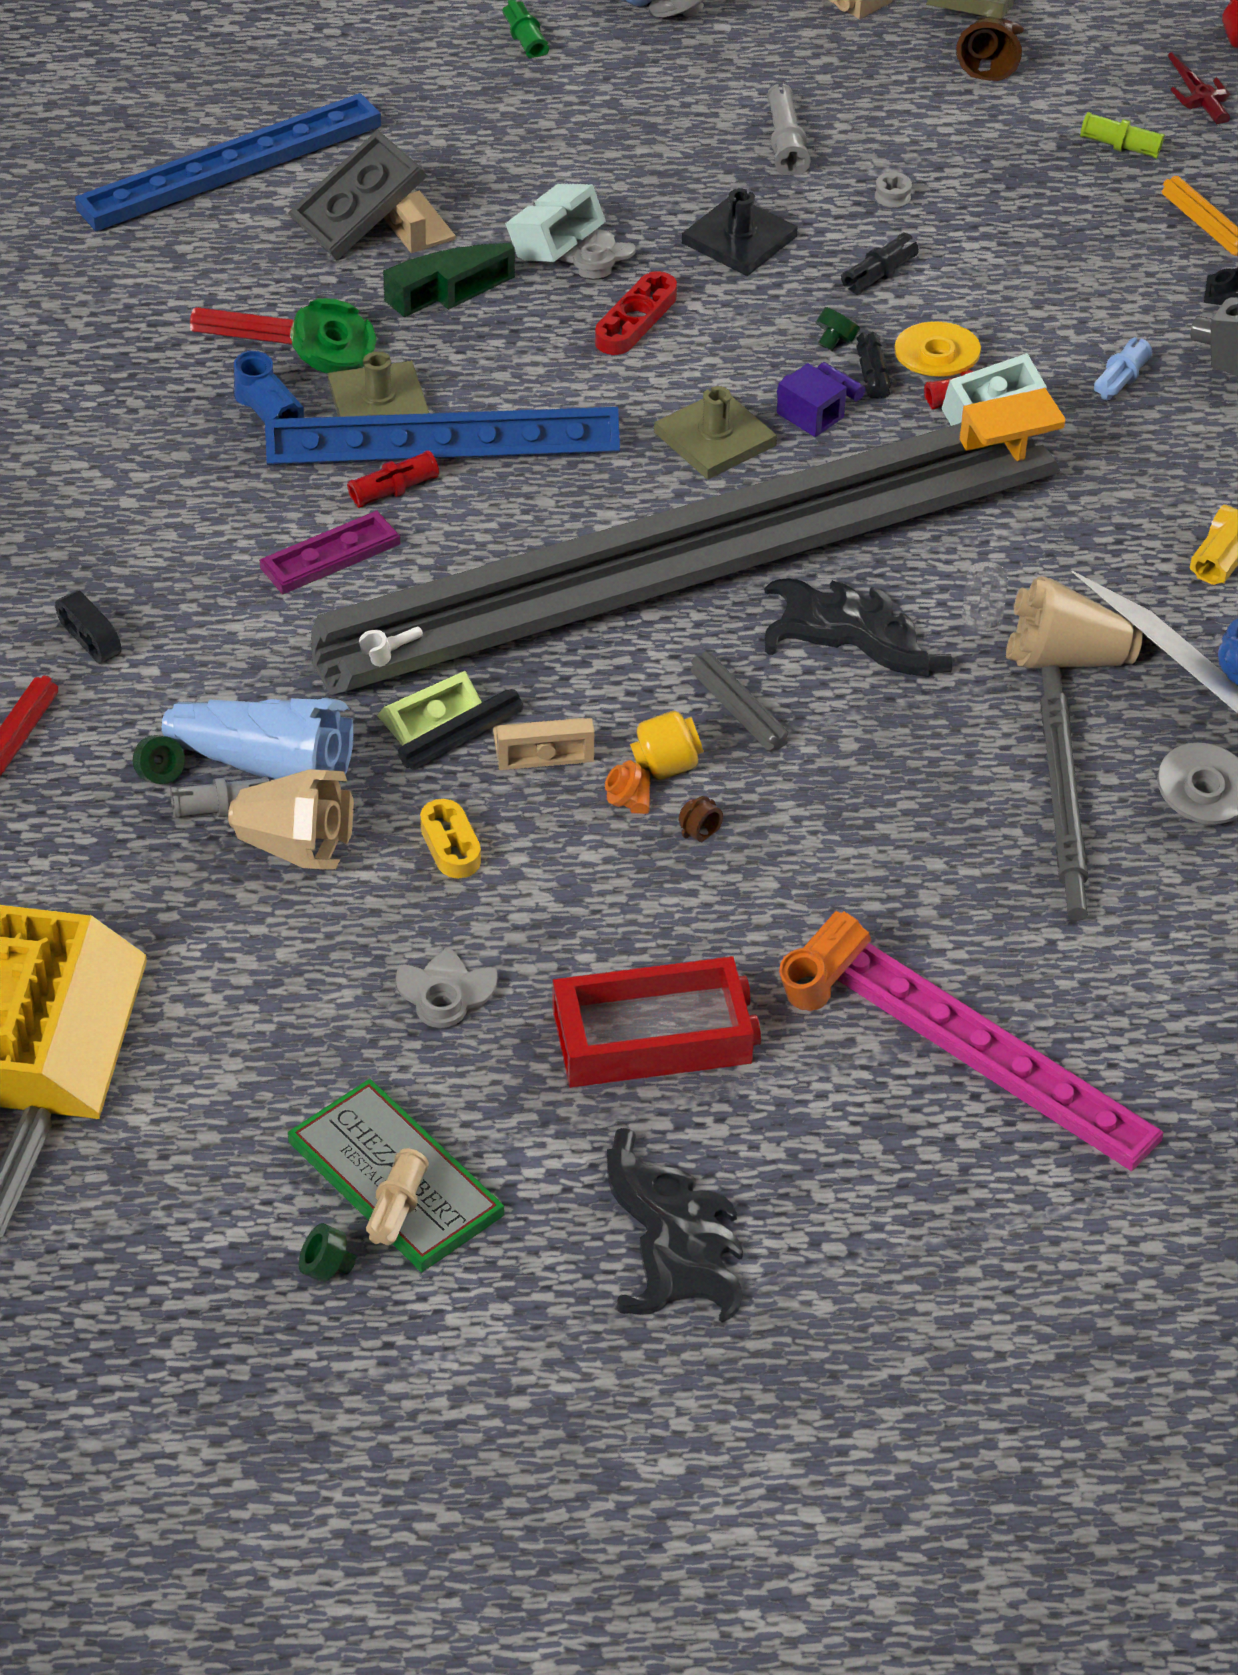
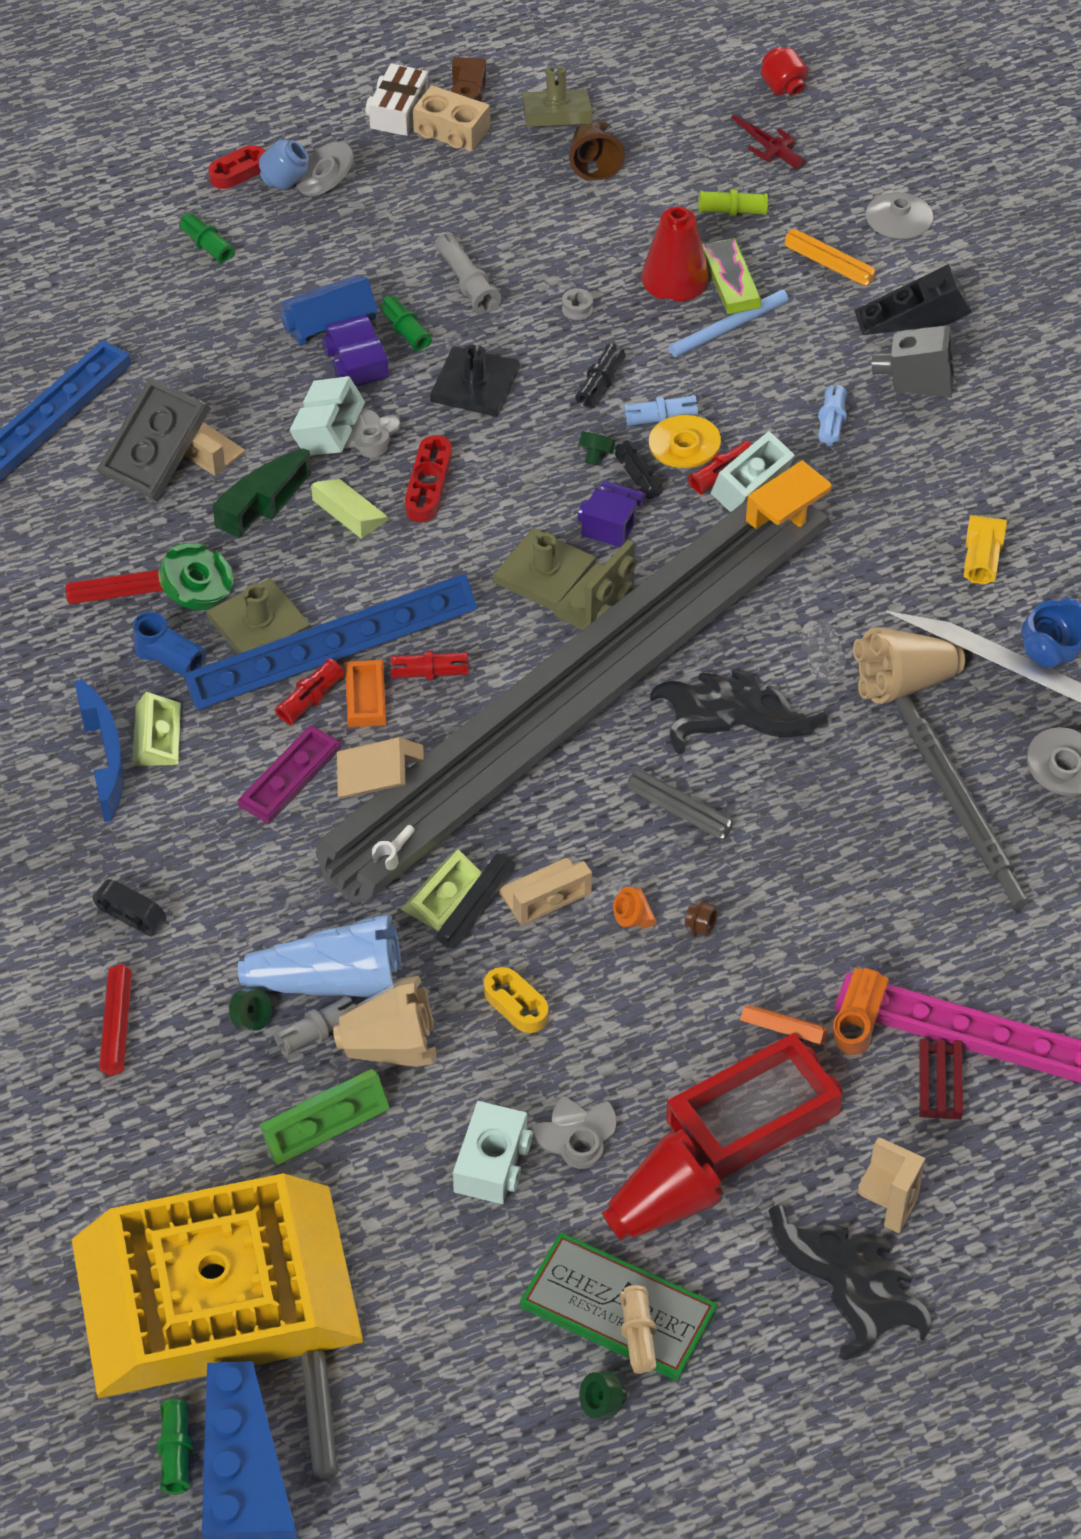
camera: 20 degrees left, 5 degrees up
(136, 502) = (110, 779): none -> blue slope
(178, 885) = (324, 1116): none -> bright green plate
(214, 472) = (156, 731): none -> yellowish green slope
(336, 975) = (492, 1130): none -> light aqua brick
(418, 560) = (375, 766): none -> tan panel
(454, 498) = (365, 693): none -> orange tile
(502, 1068) = (663, 1189): none -> red cone
(534, 316) = (347, 506): none -> yellowish green slope
(536, 489) = (430, 665): none -> red pin
(614, 122) = (331, 303): none -> blue brick
(621, 171) = (355, 350): none -> dark purple brick
(667, 745) = (647, 862): yellow head -> none
(693, 160) = (405, 323): none -> green axle
(729, 946) = (784, 1023): none -> orange tile
(763, 456) = (599, 588): none -> olive bracket
(763, 1142) = (893, 1181): none -> tan panel
(899, 1034) = (940, 1050): none -> dark red tile
(917, 311) = (659, 410): none -> light blue pin
(1023, 166) = (676, 258): none -> red cone
(1054, 251) = (726, 325): none -> light blue bar
(1080, 205) = (731, 276): none -> tile

